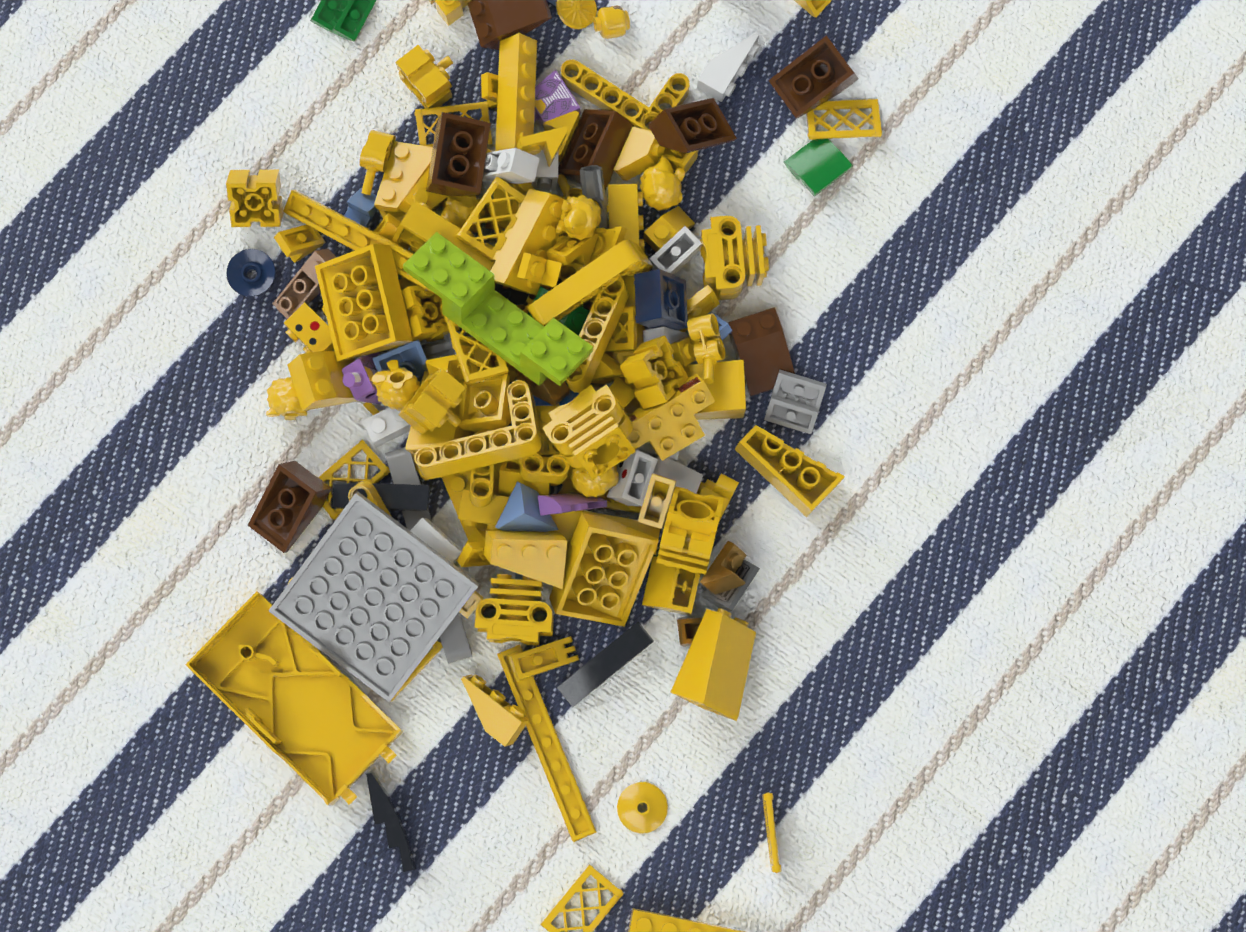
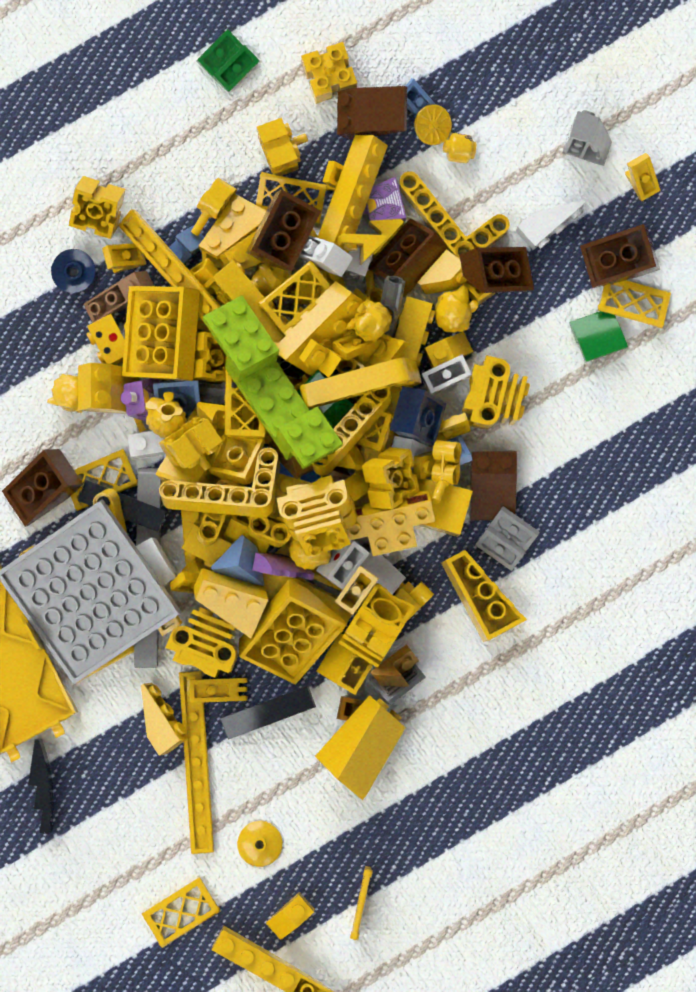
camera: 15 degrees right, 5 degrees up
(700, 873) = (290, 916): none -> yellow slope

